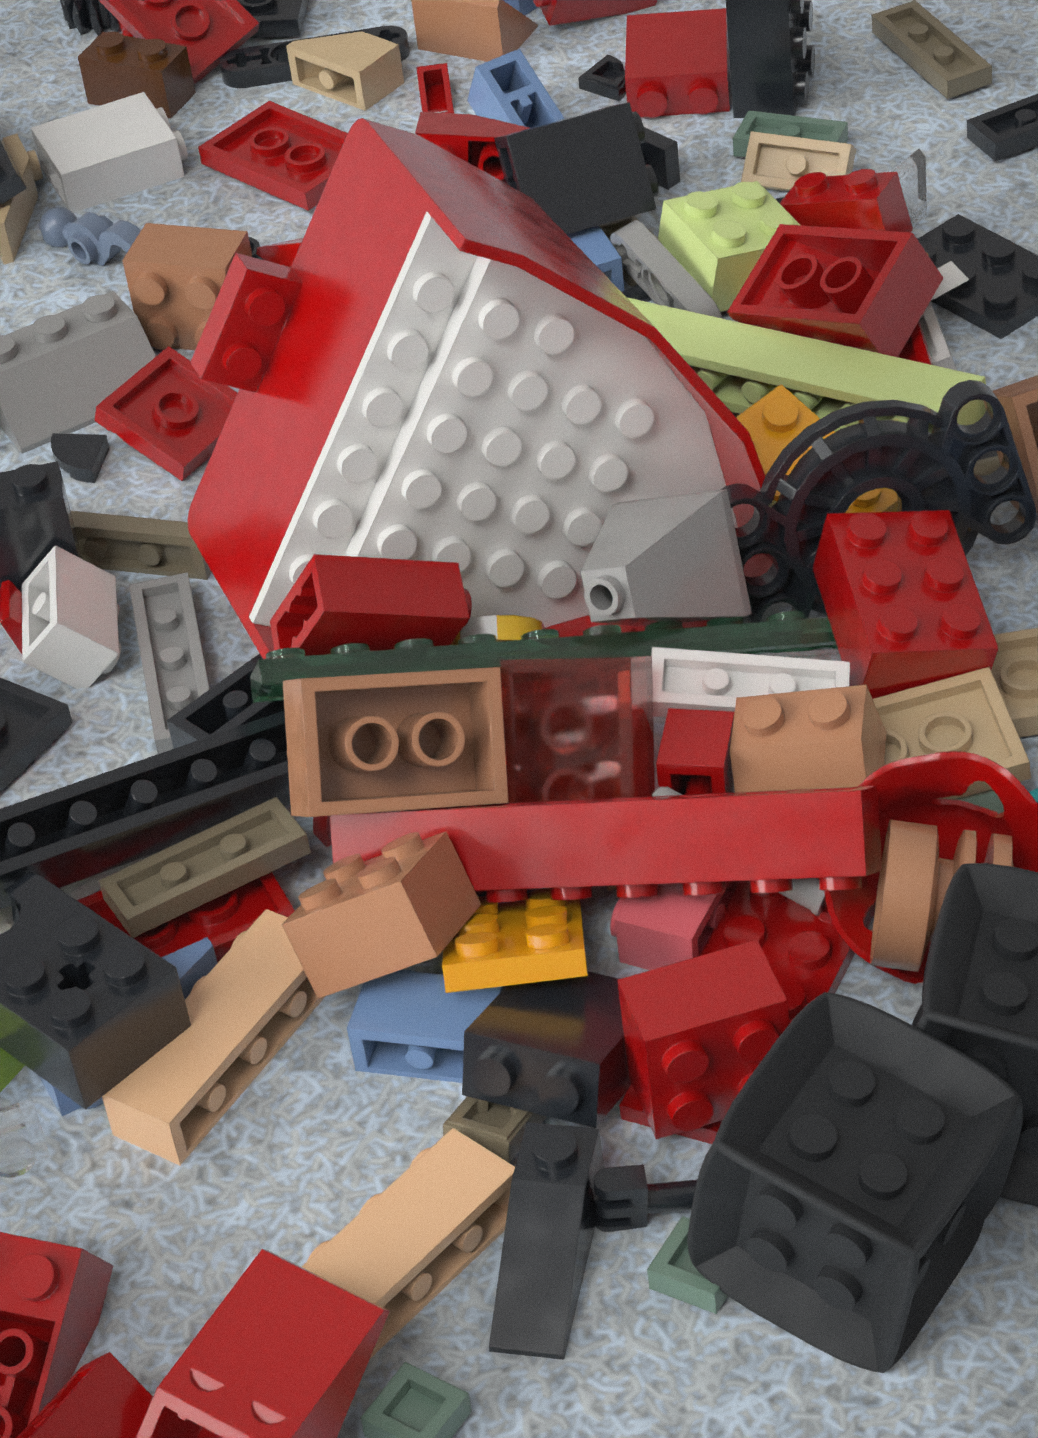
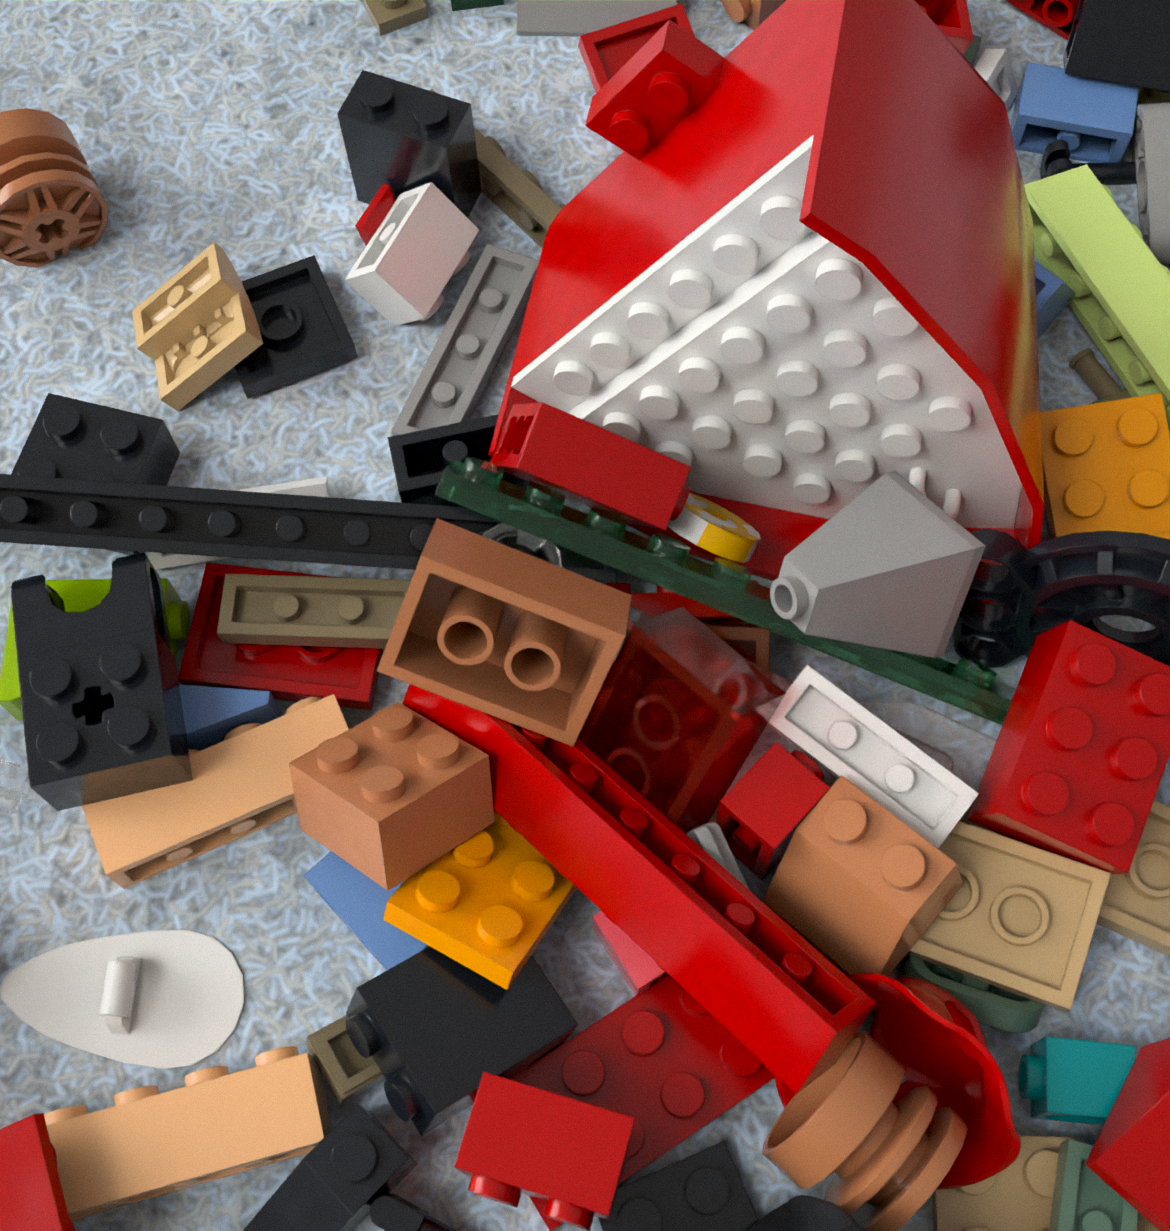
camera: 30 degrees right, 25 degrees up
(80, 454) = (555, 67): black tile -> none
(274, 1204) = (133, 996): none -> white shield

